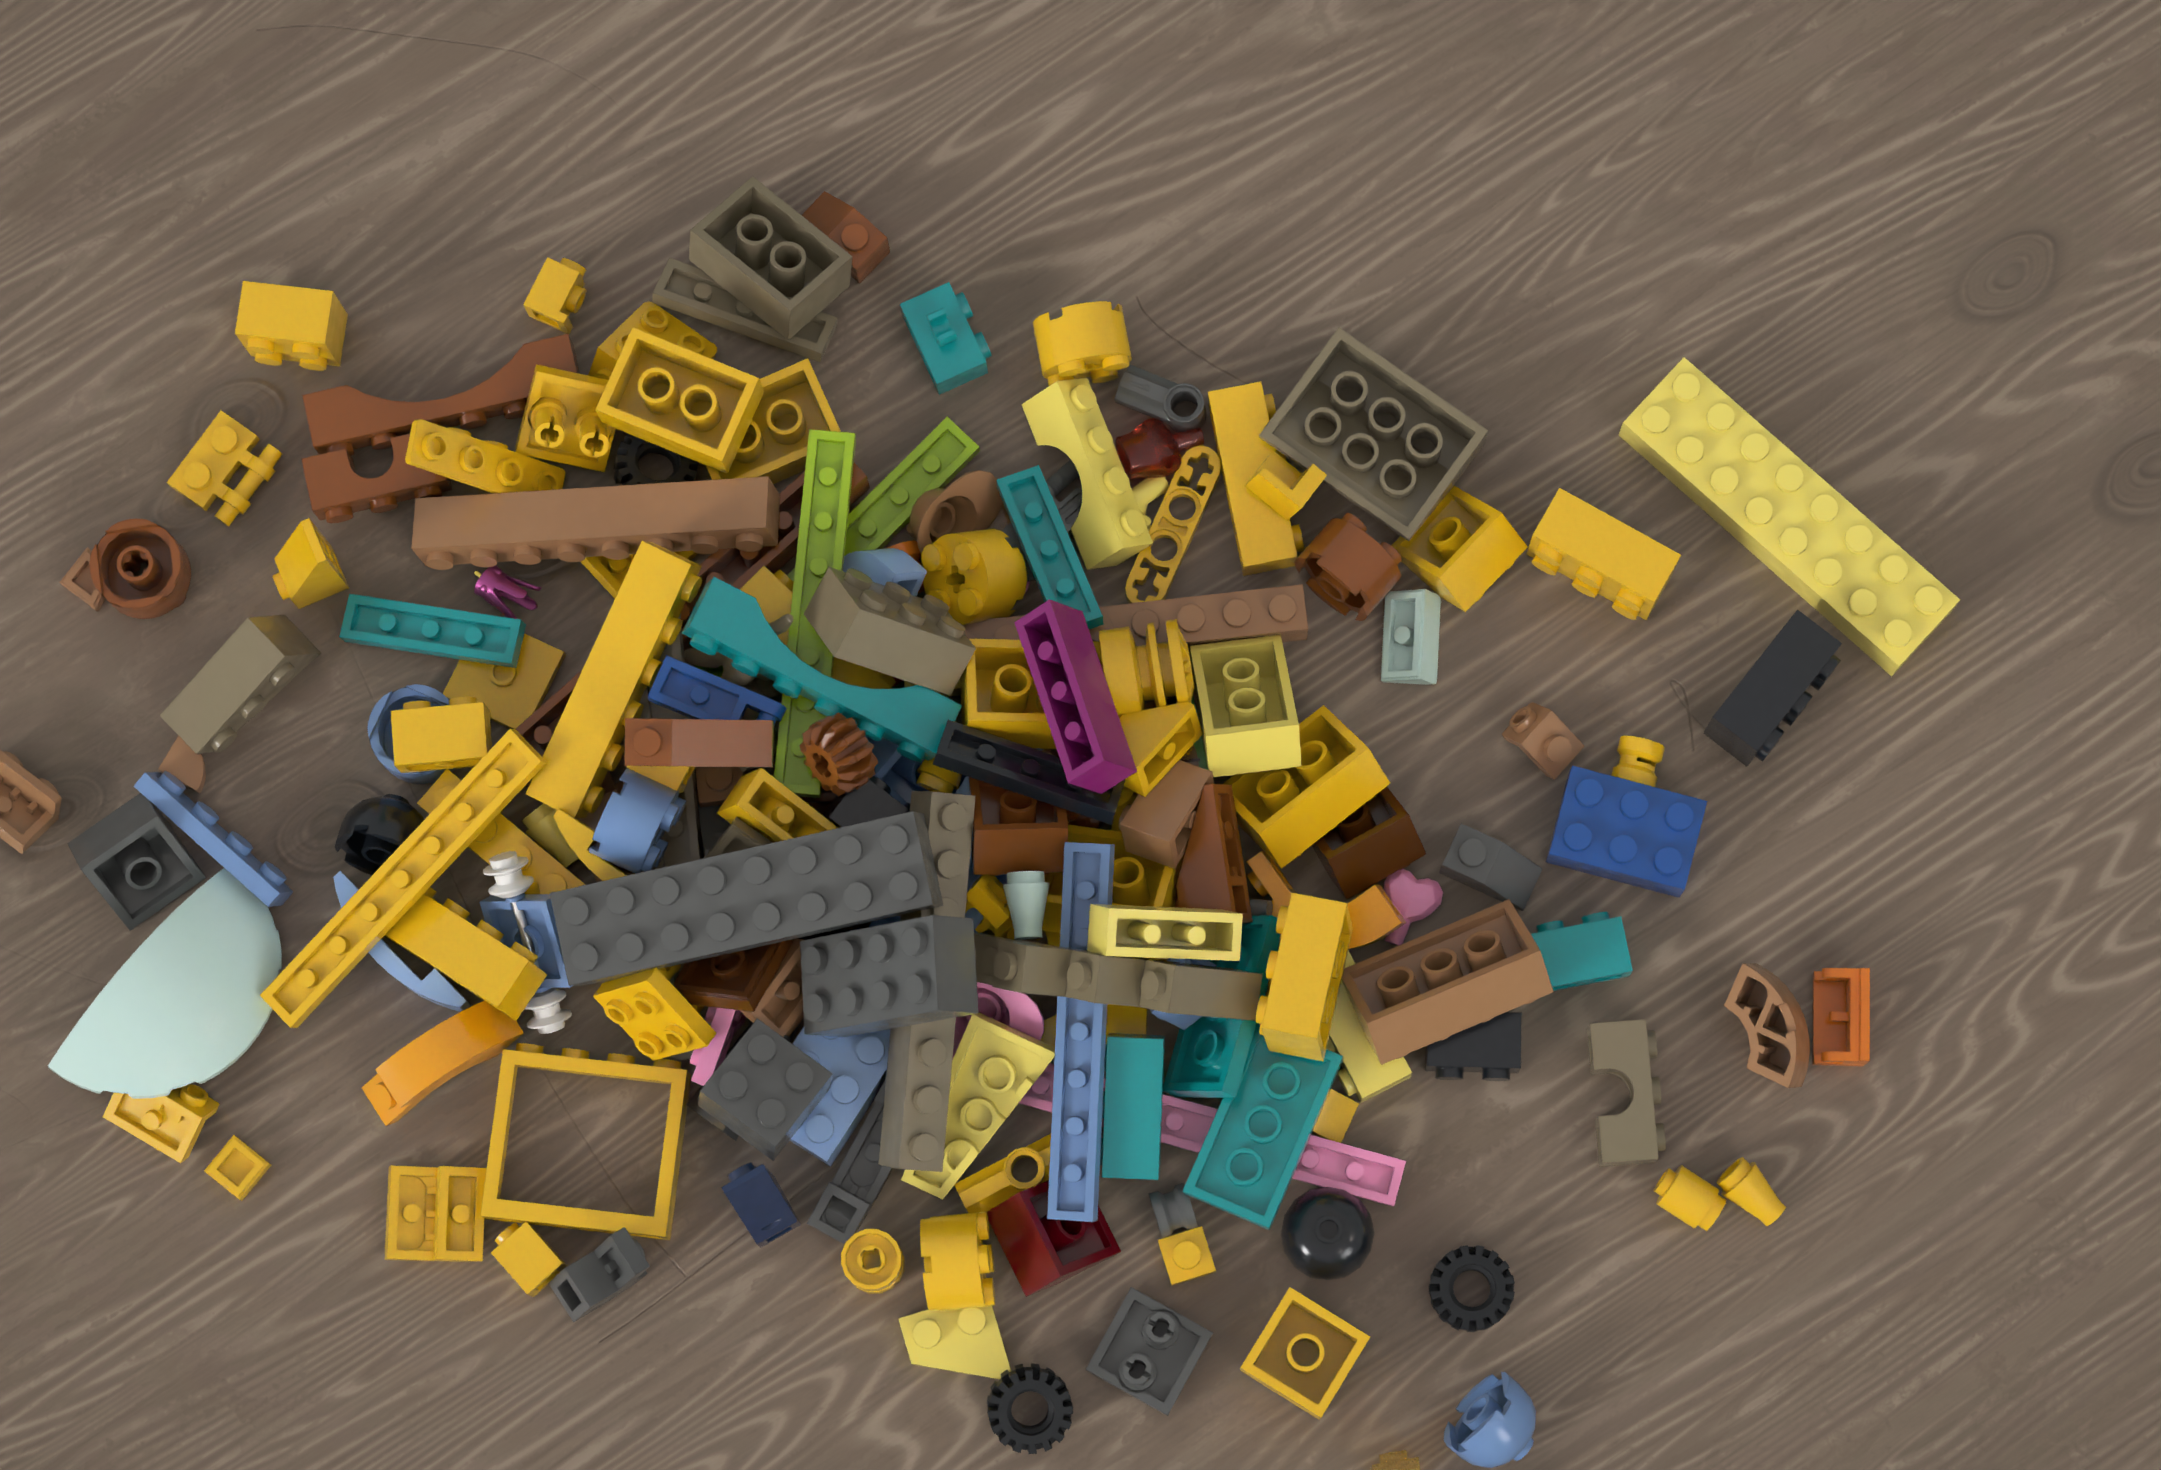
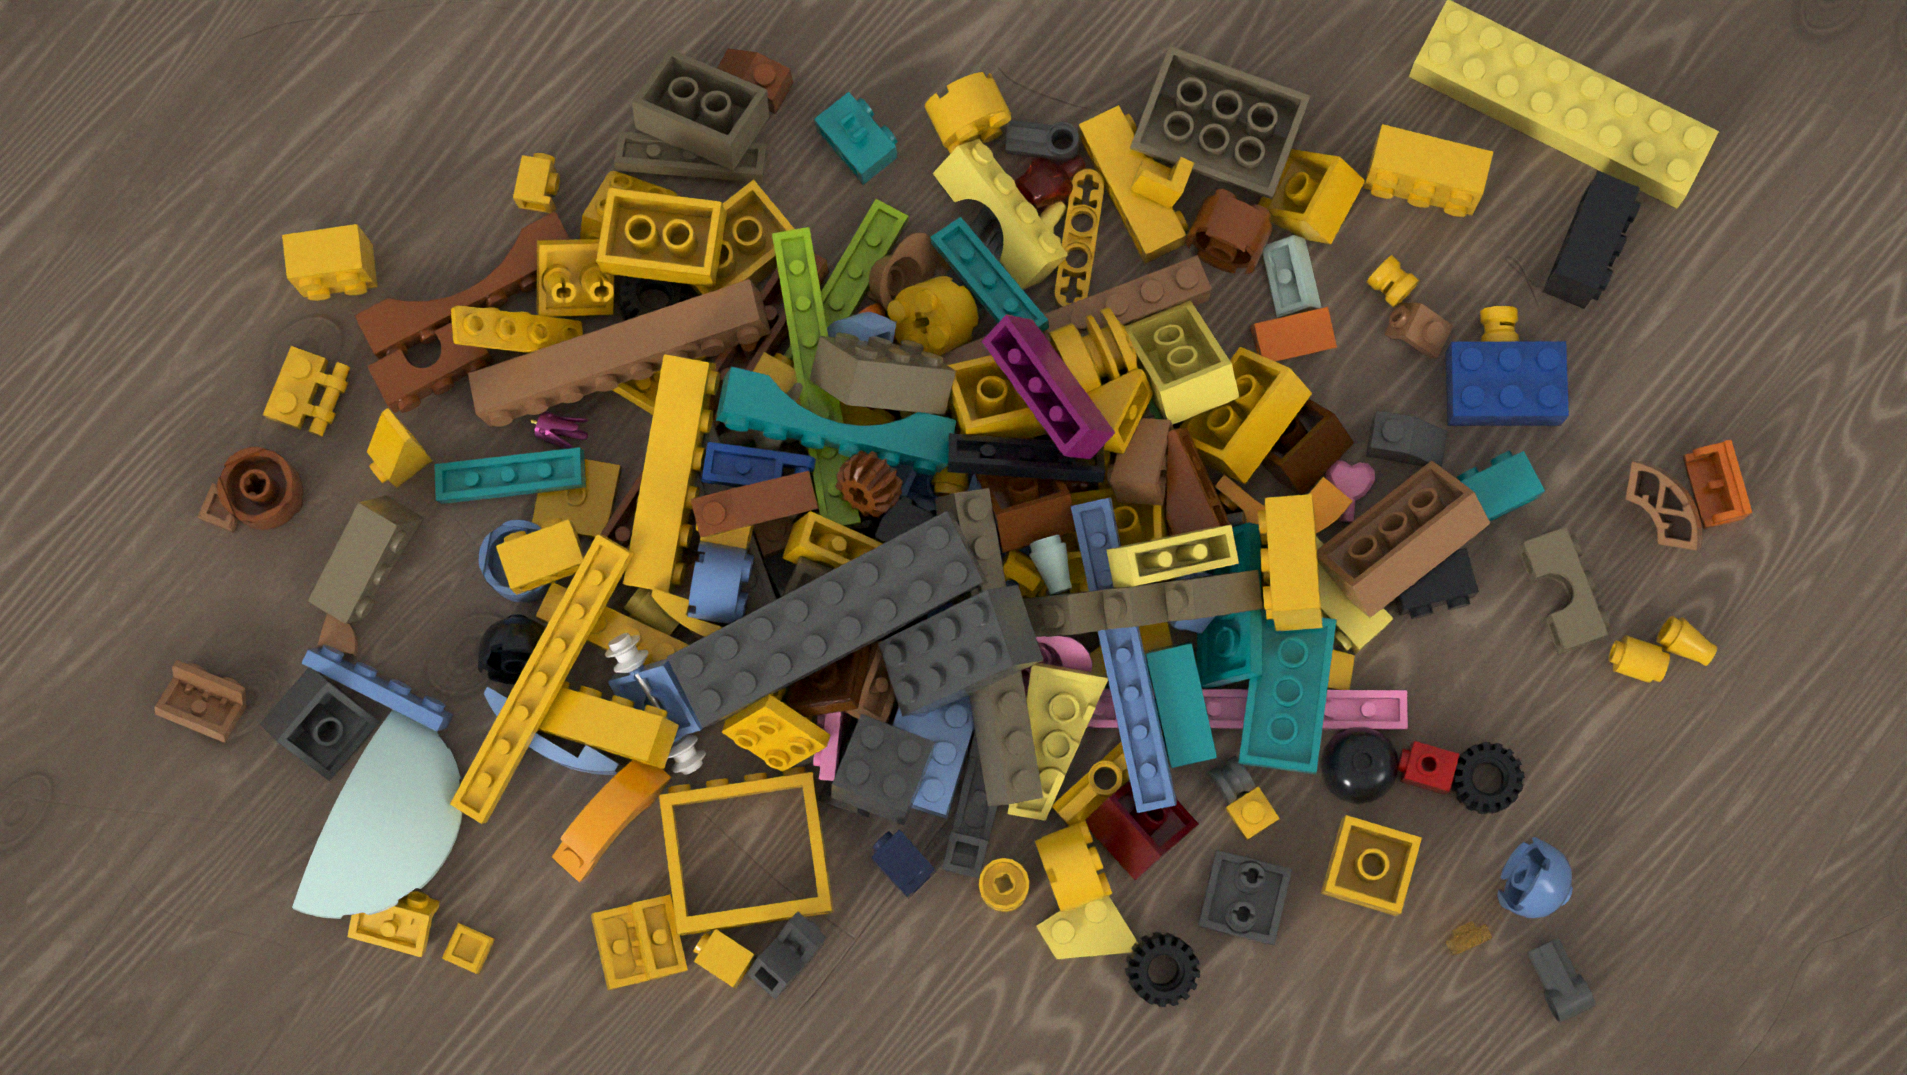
camera: 15 degrees left, 0 degrees up
(1392, 708) = (1294, 335): none -> orange hinge
(1404, 1257) = (1427, 767): none -> red brick
(1527, 674) = (1393, 281): none -> yellow wheel

